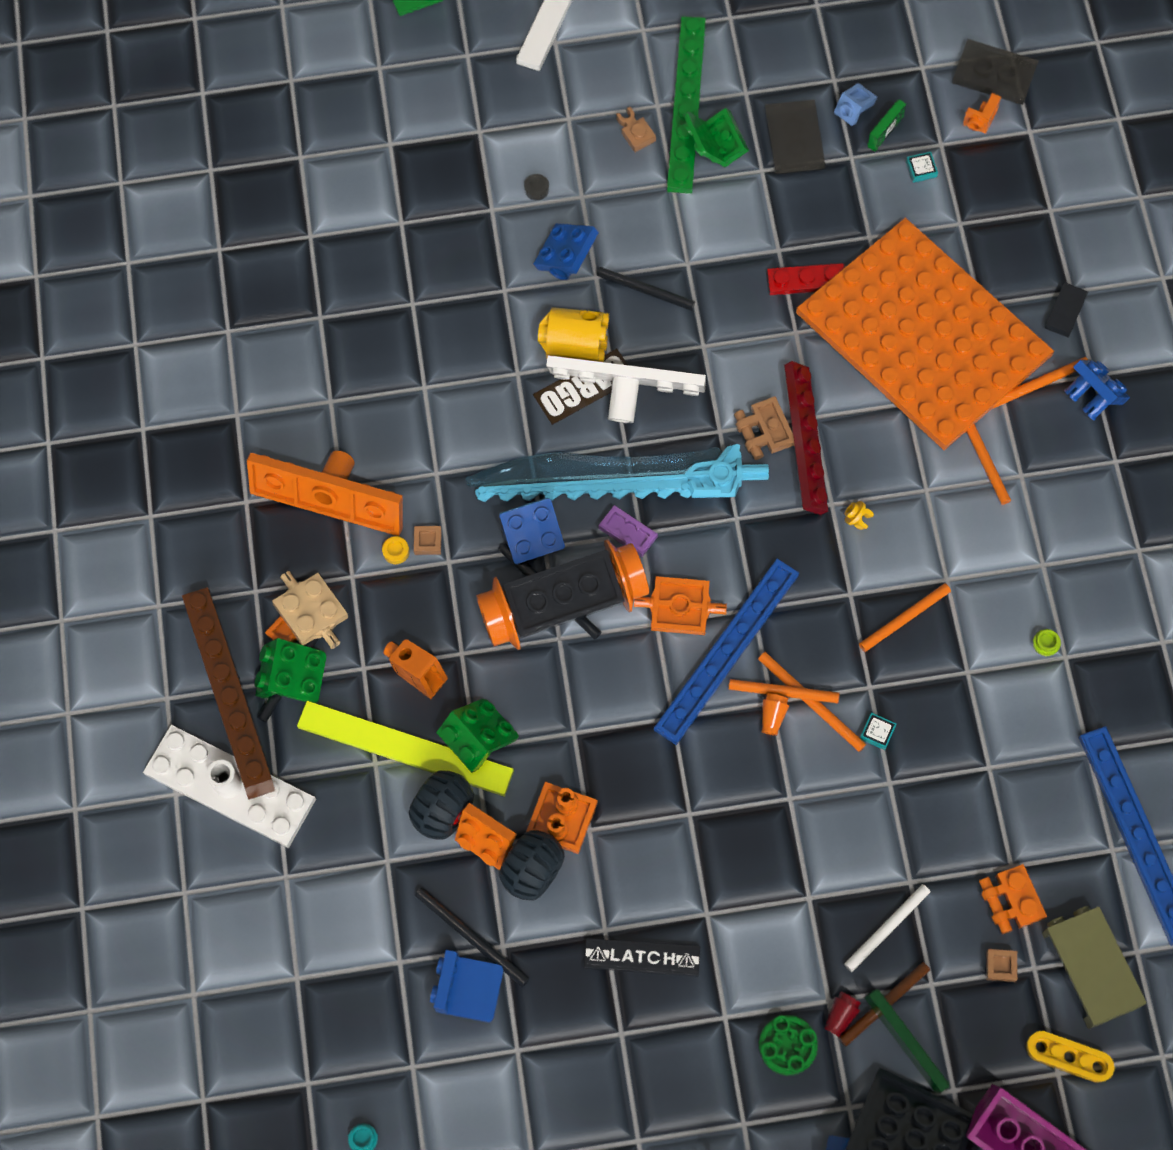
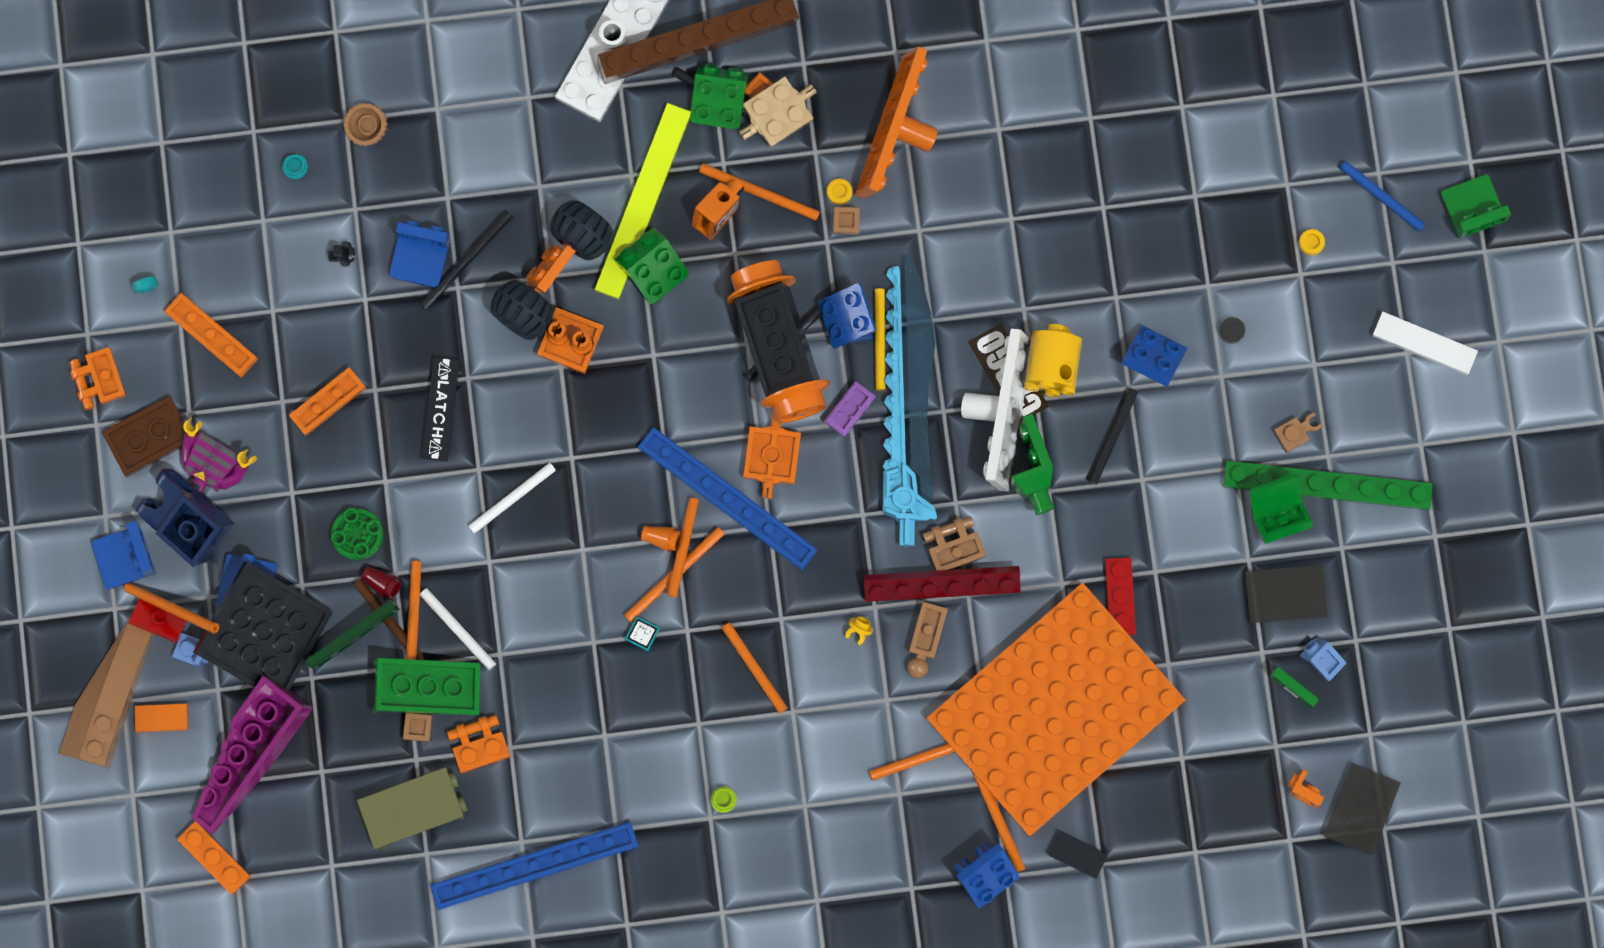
camera: 90 degrees right, 10 degrees up
(315, 1056) = (365, 124): none -> medium nougat hat
(395, 628) = (761, 192): none -> orange piece
(410, 54) = (1382, 196): none -> blue bar
(448, 121) = (1311, 242): none -> yellow tile
(466, 1074) = (344, 253): none -> black plate
(565, 505) = (880, 370): none -> yellow bar
(638, 1086) = (327, 401): none -> orange plate
(682, 342) = (1036, 481): none -> green plate
(738, 875) = (512, 498): none -> white bar
(862, 451) = (926, 638): none -> medium nougat plate
(873, 975) = (413, 615): none -> orange piece
(922, 167) = (1247, 723): tile -> none
(959, 955) = (426, 687): none -> green plate
(1083, 1056) = (334, 768): yellow plate -> none

